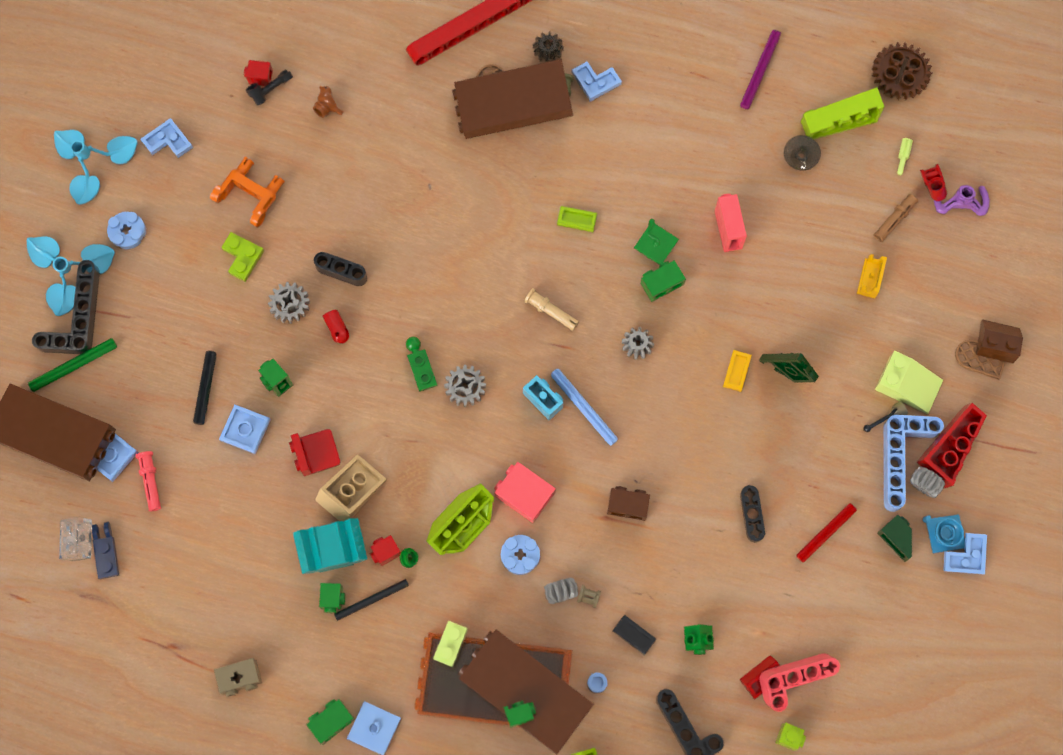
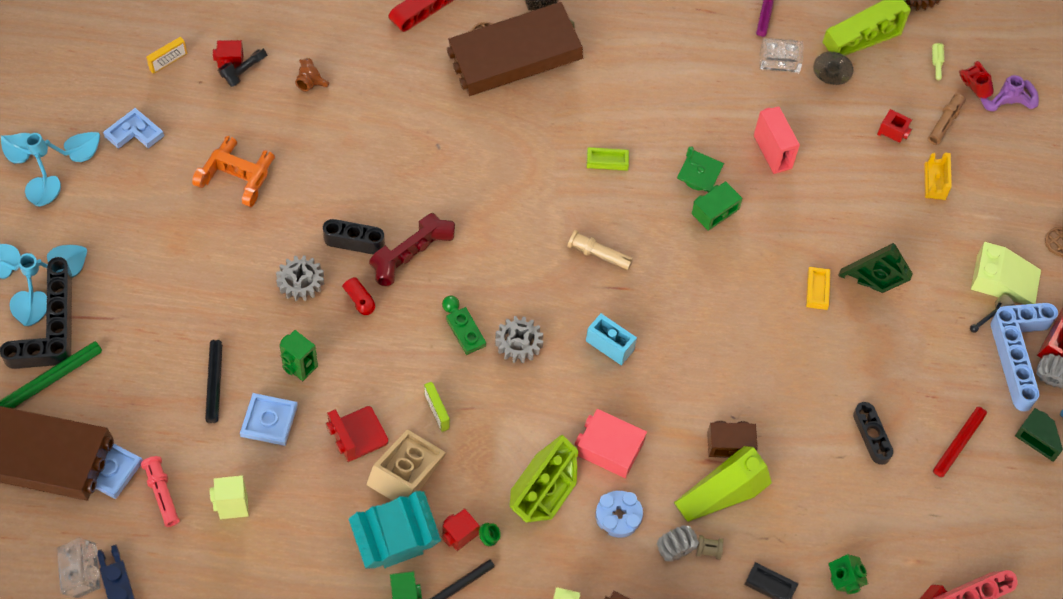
camera: 15 degrees left, 15 degrees down
(119, 222) = (97, 216): light blue plate -> none
(202, 497) = (230, 497): none -> yellowish green brick
(204, 67) = (166, 55): none -> tile
(246, 255) = (241, 237): lime plate -> none
(385, 438) = (437, 406): none -> lime tile
(408, 270) = (387, 261): none -> dark red plate
(584, 407) = (658, 346): light blue axle -> none
(593, 84) = (599, 29): light blue plate -> none
(615, 544) = (730, 483): none -> lime wedge
(630, 343) = (703, 272): light grey gear -> none
(756, 134) = (781, 55): none -> clear brick
(845, 215) = (895, 126): none -> red brick

